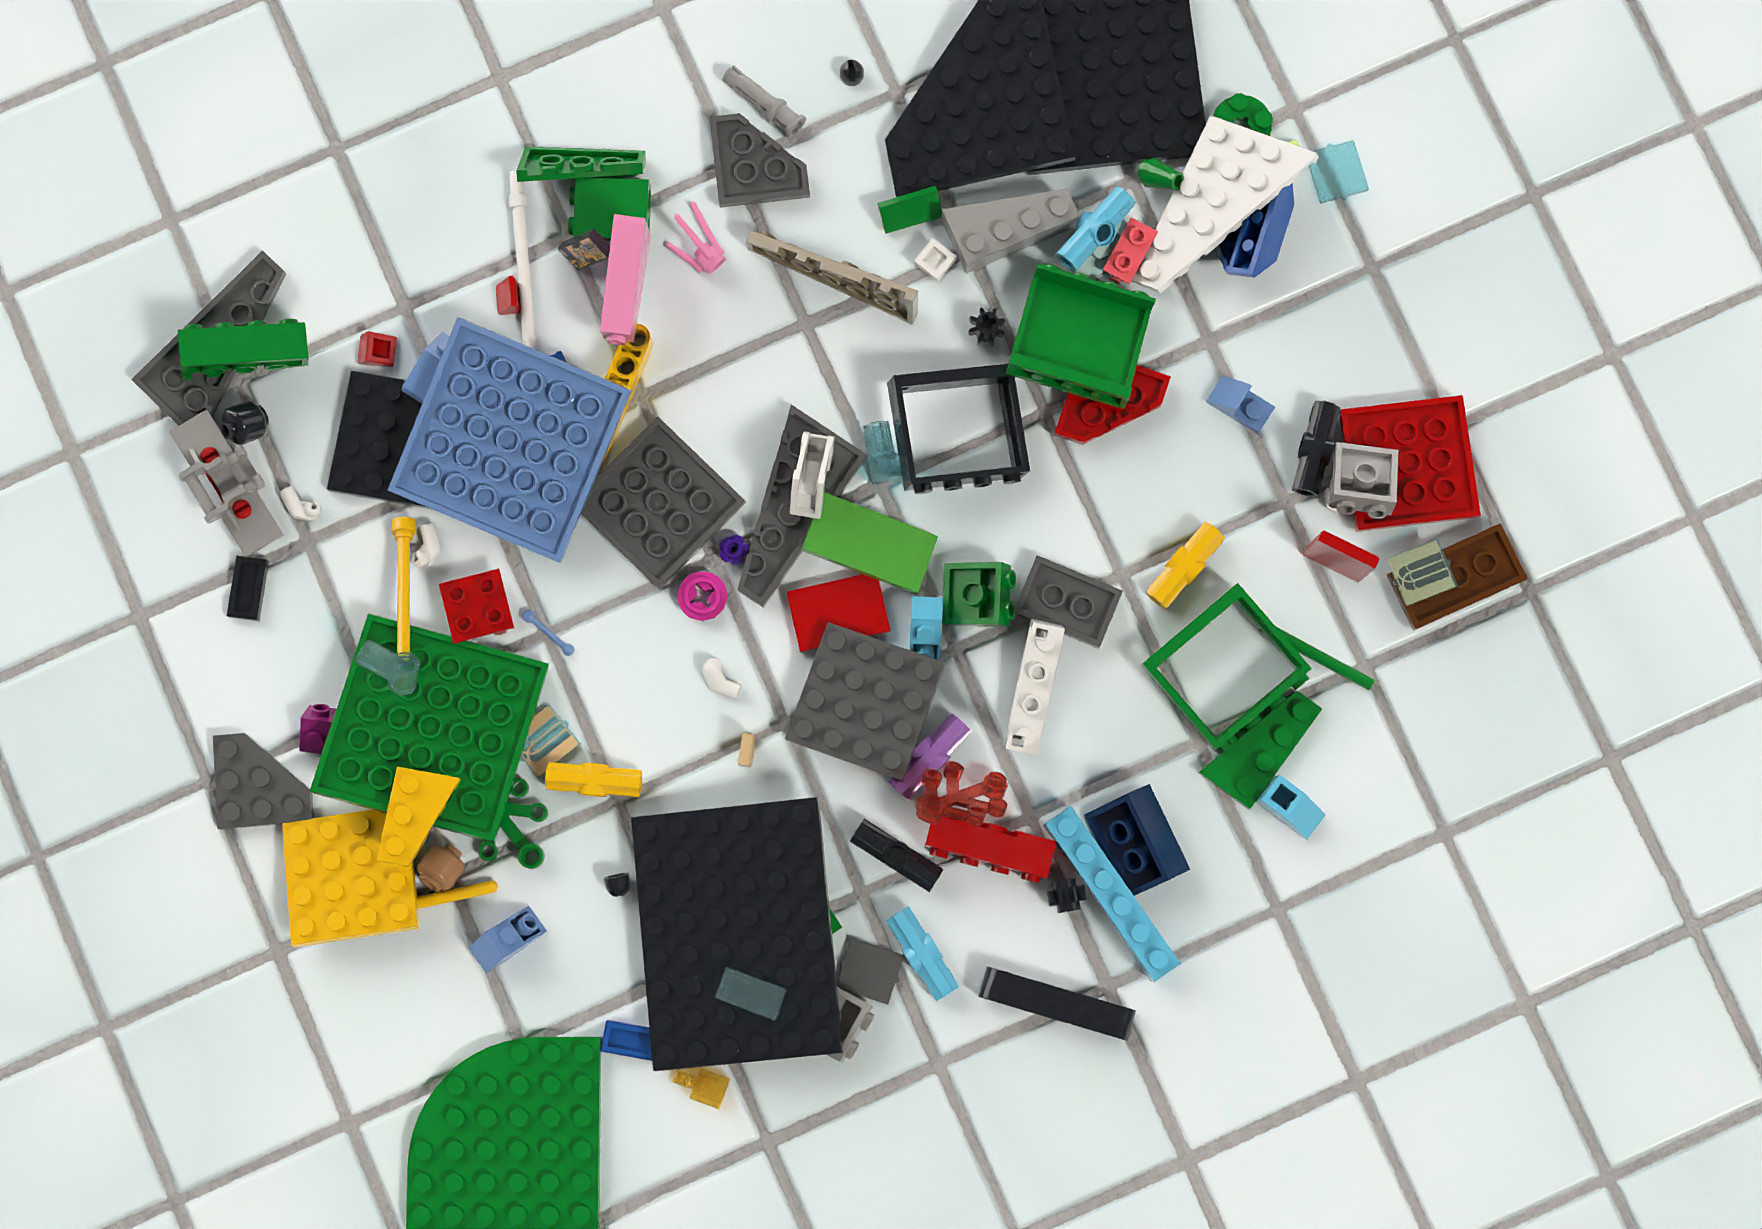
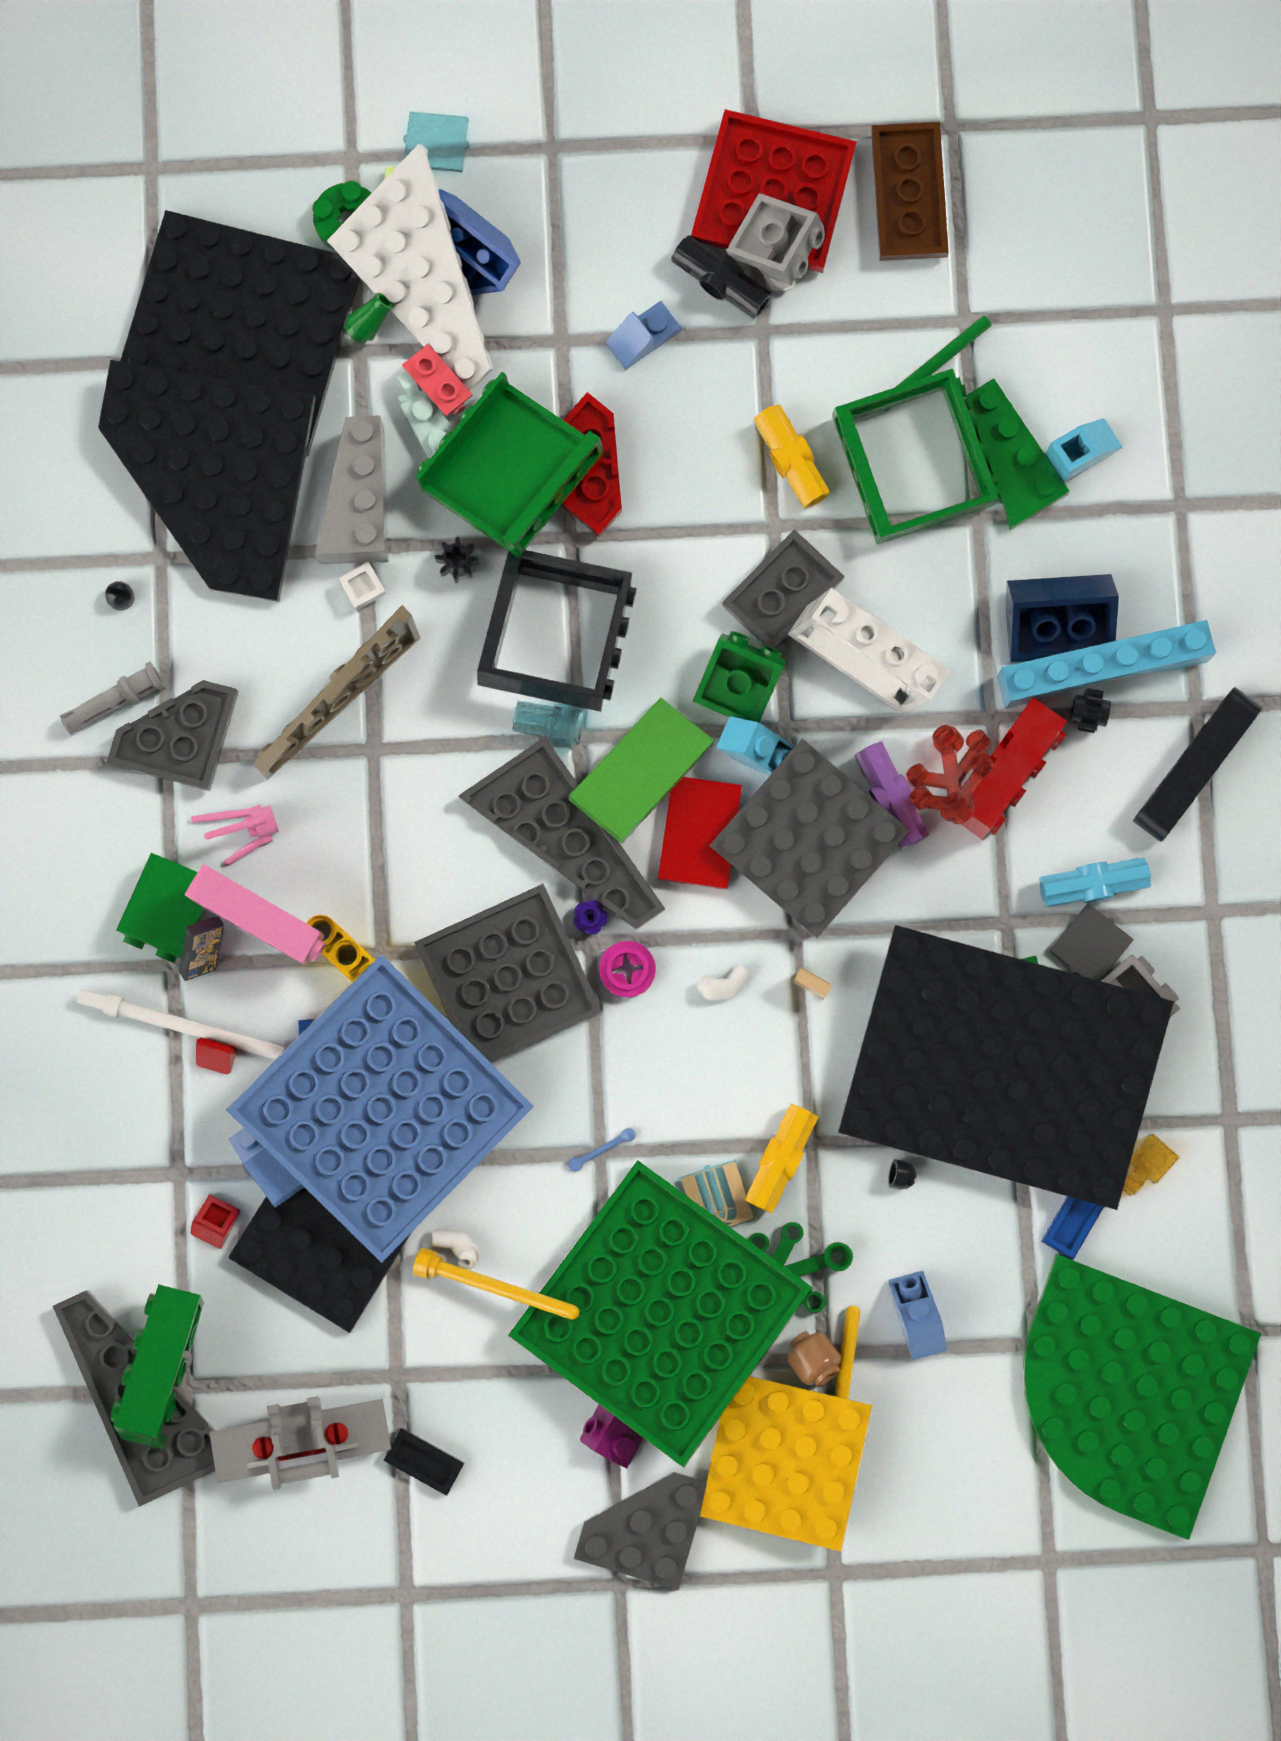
camera: 70 degrees left, 0 degrees up
(244, 422) = (239, 1396): black head -> none
(300, 509) = (359, 1370): white arm -> none
(399, 668) = (587, 1320): clear light blue piece -> none
(412, 811) = (750, 1363): yellow wing -> none
(476, 606) = (545, 1214): red hinge -> none
(571, 163) = (95, 933): green wing -> none
(751, 993) = (1078, 1072): clear light blue tile -> none
(810, 475) = (552, 797): white piece -> none
(910, 209) = (297, 590): green tile -> none
(914, 867) = (1000, 856): black piece -> none
(1095, 229) = (400, 405): medium azure piece -> none
(1341, 556) = (850, 291): tile -> none
(1422, 572) = (893, 222): clear light blue piece -> none

